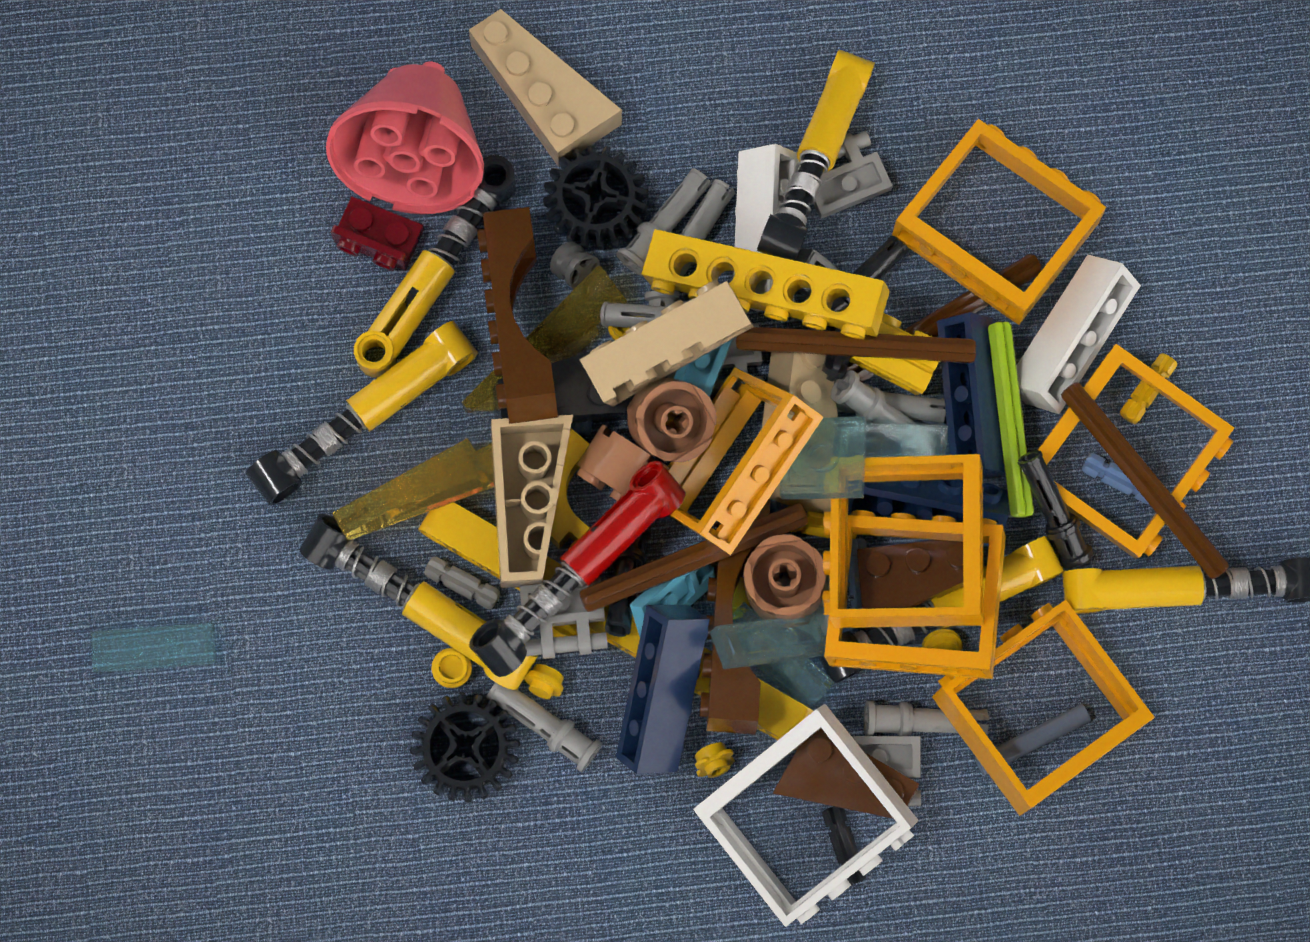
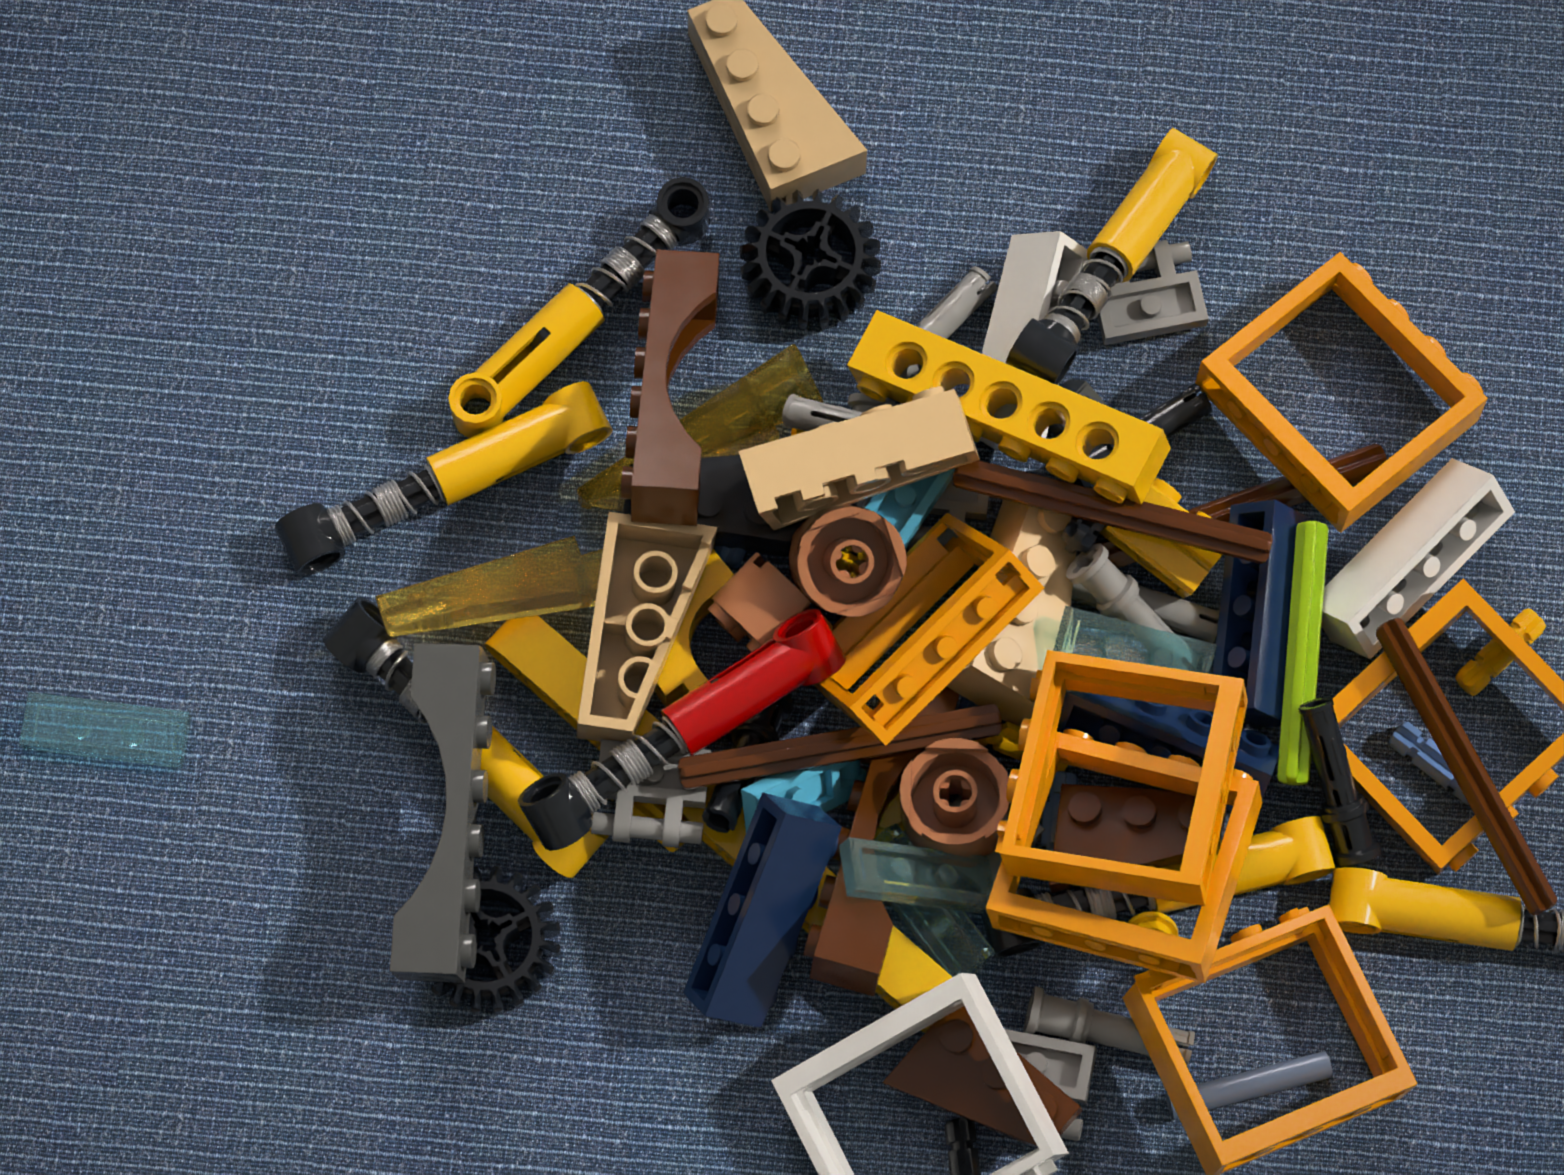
camera: 15 degrees right, 5 degrees down
(378, 234) = (512, 252): dark red bracket -> none
(408, 143) = (577, 140): coral cone -> none
(426, 748) = (433, 925): none -> dark grey arch
(451, 668) = (499, 834): yellow plate -> none
(462, 582) = (529, 727): light grey axle -> none
(544, 681) = (610, 875): yellow plate -> none
(559, 734) = (614, 948): light grey pin -> none
(572, 263) = (760, 337): dark grey wheel -> none
(665, 219) = (899, 303): light grey pin -> none
(713, 760) = (813, 1024): yellow plate -> none
(829, 462) = (1041, 652): clear light blue tile -> none

